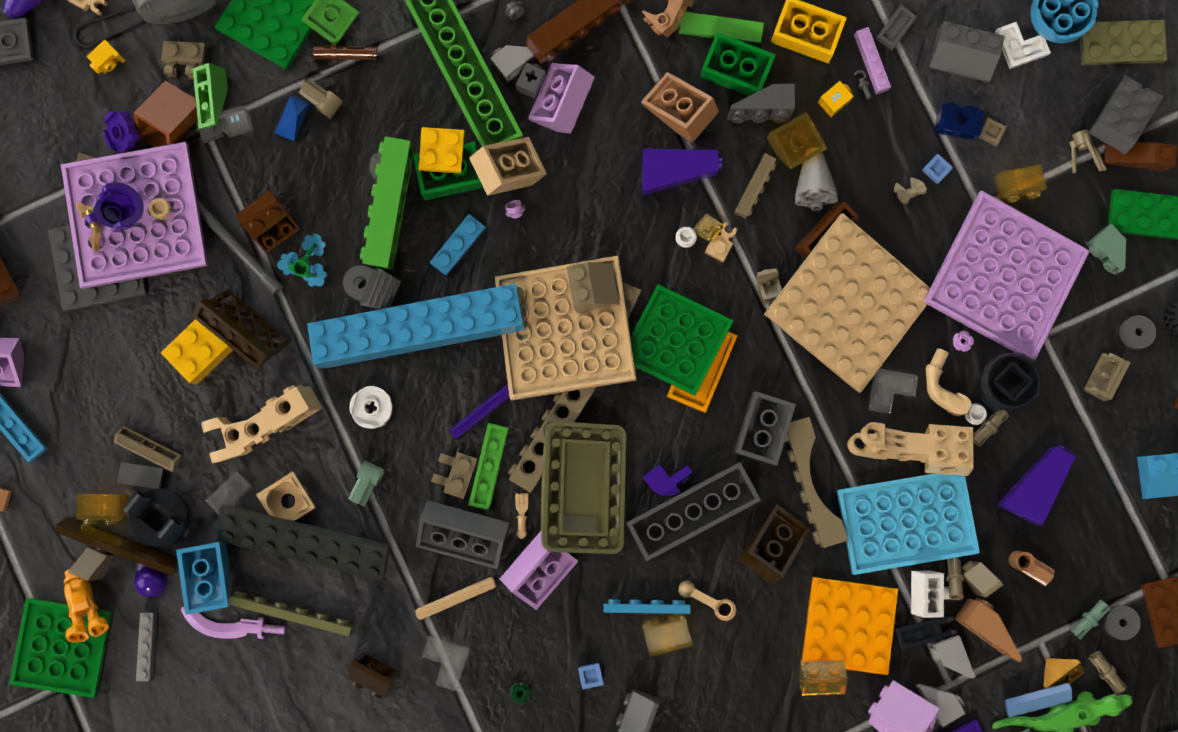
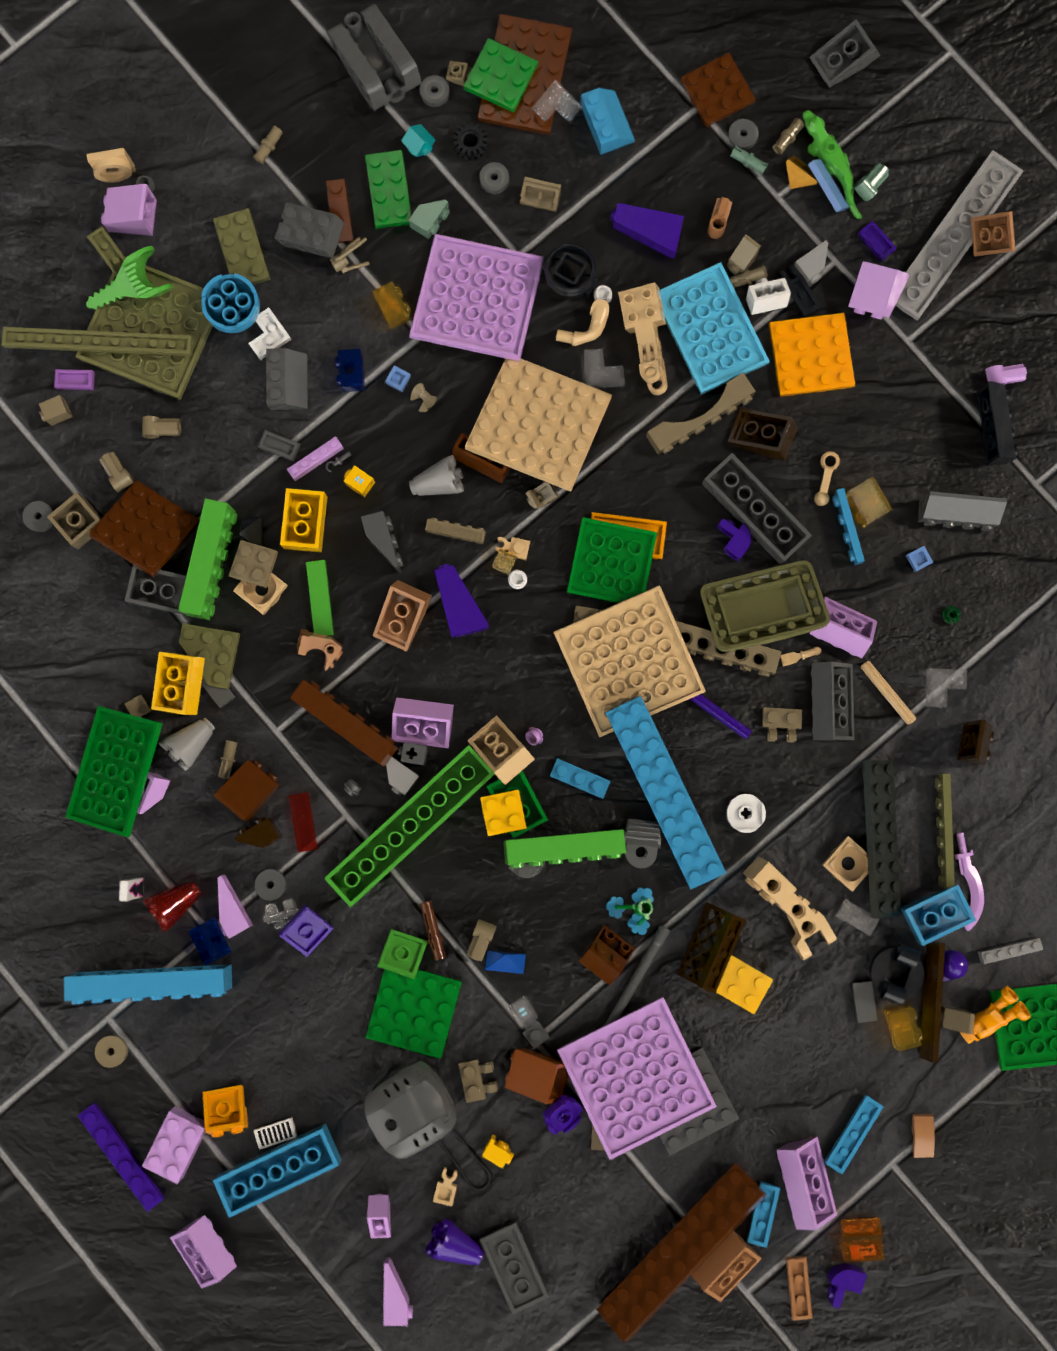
camera: 105 degrees left, 0 degrees up
(117, 208) = (638, 1090): dark purple helmet -> none
(147, 448) = (839, 1002): dark tan piece -> none
(160, 209) = (625, 1054): tan tile -> none
(210, 93) = (507, 1041): bright green slope -> none
(368, 478) = (810, 798): sand green piece -> none
(488, 466) = (766, 696): bright green tile -> none
(592, 286) = (588, 645): dark tan slope -> none
(736, 65) = (353, 573): green brick -> none
(764, 428) = (668, 467): dark grey slope -> none
(796, 141) = (408, 503): clear yellow slope -> none
(822, 677) = (863, 364): clear yellow brick -> none
(949, 704) = (852, 262): light grey slope -> none
(963, 346) = (543, 325): lavender plate -> none
(986, 624) = (776, 248): medium nougat slope -> none
(989, 427) = (611, 280): dark tan pin -> none
(992, 131) = (351, 340): dark tan tile -> none

